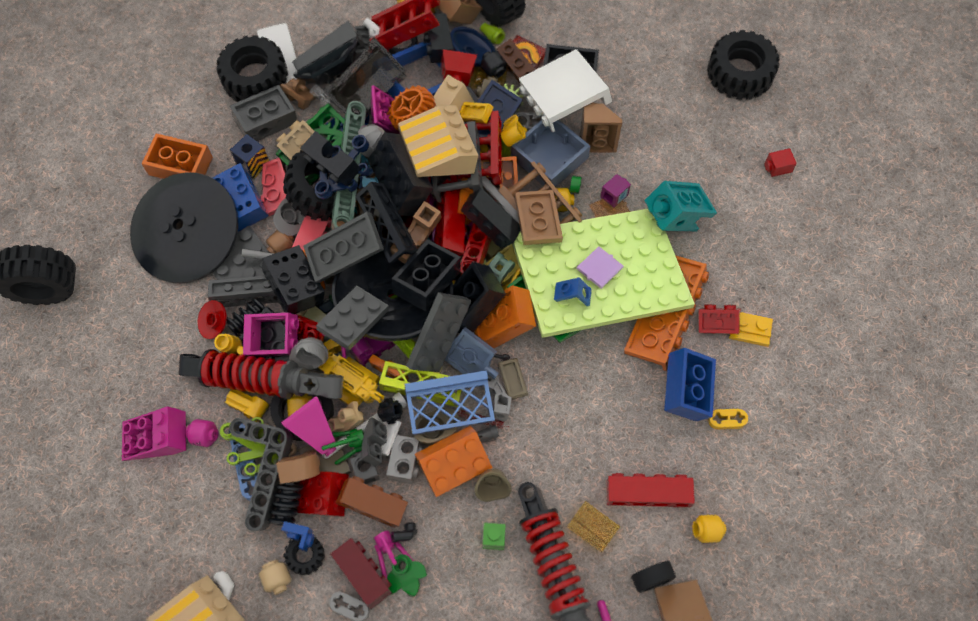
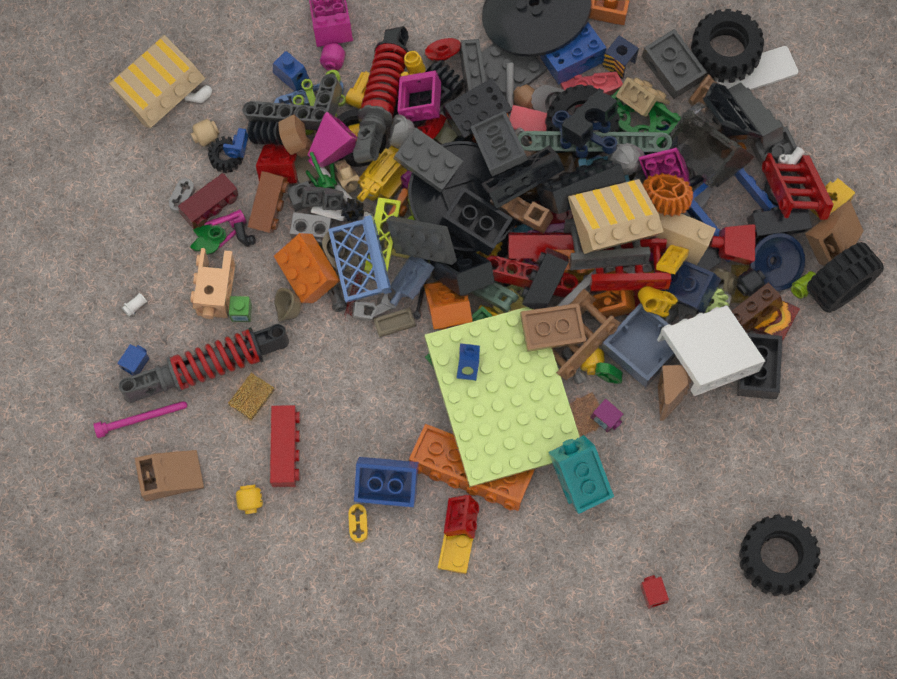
camera: 90 degrees right, 5 degrees up
(213, 477) = (288, 69): none -> blue torso
(472, 565) = (213, 286): none -> light nougat torso
(599, 267) = (501, 389): lavender piece -> none
(653, 576) = (203, 445): black tyre -> none

